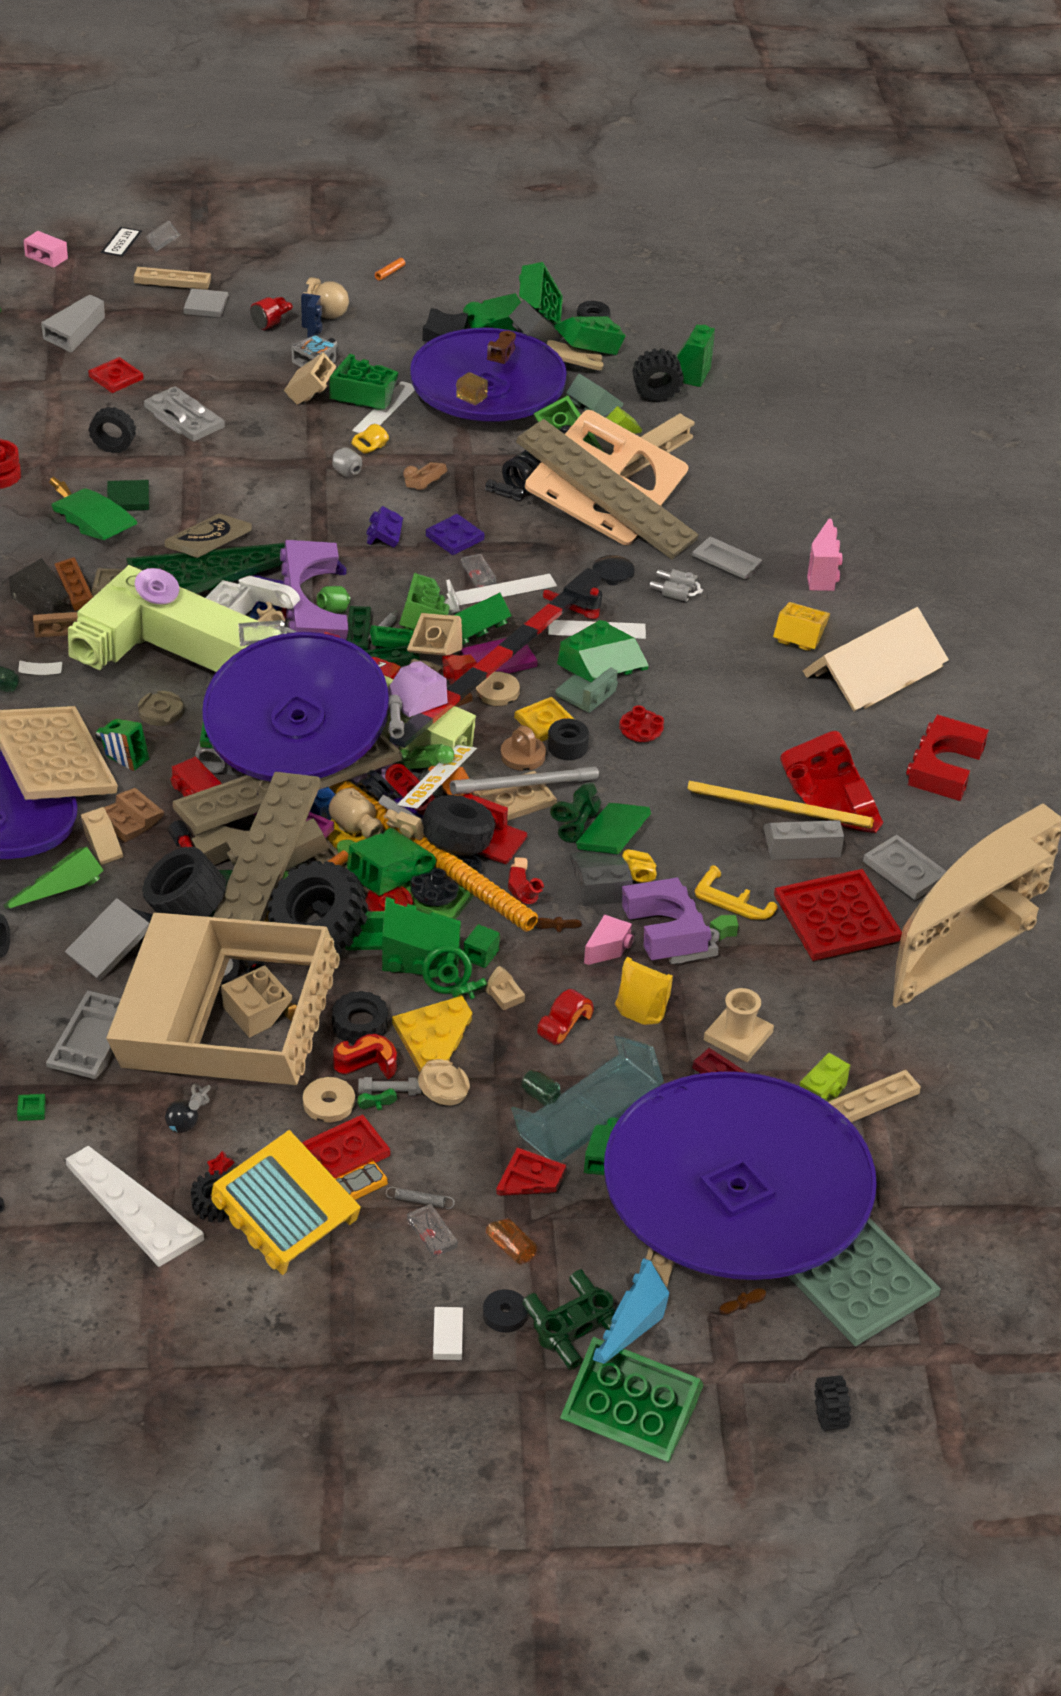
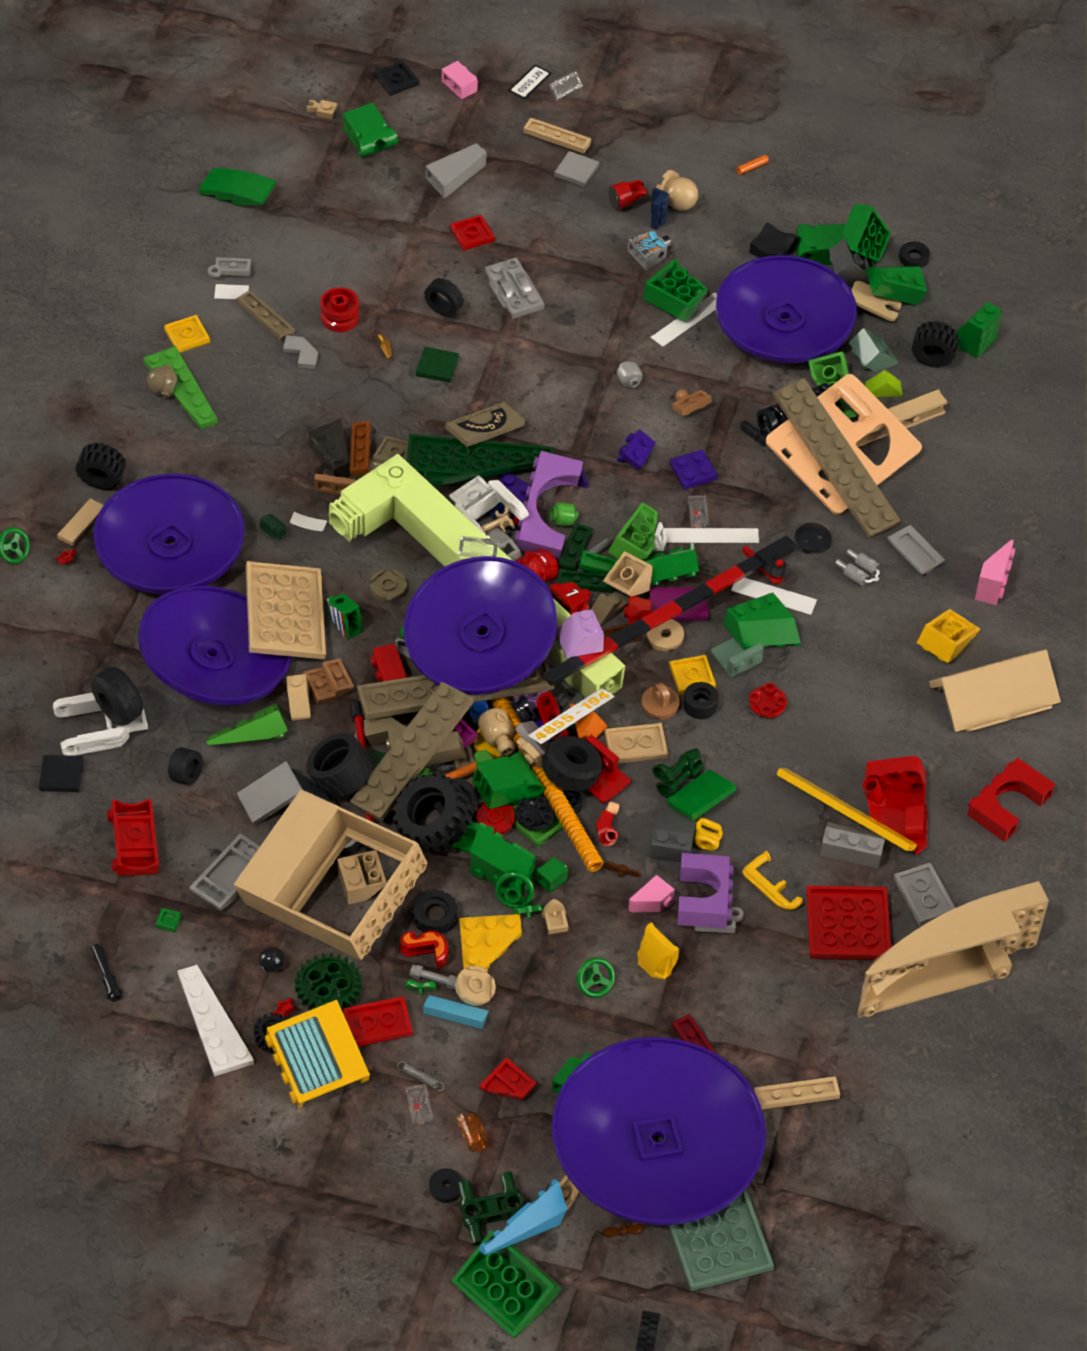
camera: 20 degrees right, 10 degrees up
(94, 514) = (401, 379): green slope -> none
(156, 586) = (413, 477): lavender dish -> none
(197, 1099) = (286, 950): light grey piece -> none
(260, 1120) = (328, 982): none -> dark green gear
(310, 379) = (630, 278): tan brick -> none
(328, 1088) = (382, 965): tan tile -> none
(363, 1180) = (380, 1050): tile -> none
(374, 435) = (664, 350): yellow piece -> none
(396, 726) = (549, 666): light grey bar -> none
(426, 756) = (574, 691): bright green plate -> none
(430, 1118) = (455, 1012): none -> medium azure slope
(448, 1333) = (397, 1191): white tile -> none
(469, 785) = (595, 730): light grey piece -> none
(471, 388) = (760, 326): clear yellow brick -> none
(501, 349) = (807, 286): reddish brown leg -> none
(541, 1087) = (546, 1011): clear green brick -> none
(563, 1016) = (592, 947): red animal -> none
(577, 1037) = (588, 974): none -> green piece
(604, 1094) = (580, 1034): clear light blue piece -> none
(725, 925) = (752, 908): bright green piece -> none
(738, 1027) = (722, 1003): tan plant -> none
(827, 1077) = (765, 1068): lime brick -> none

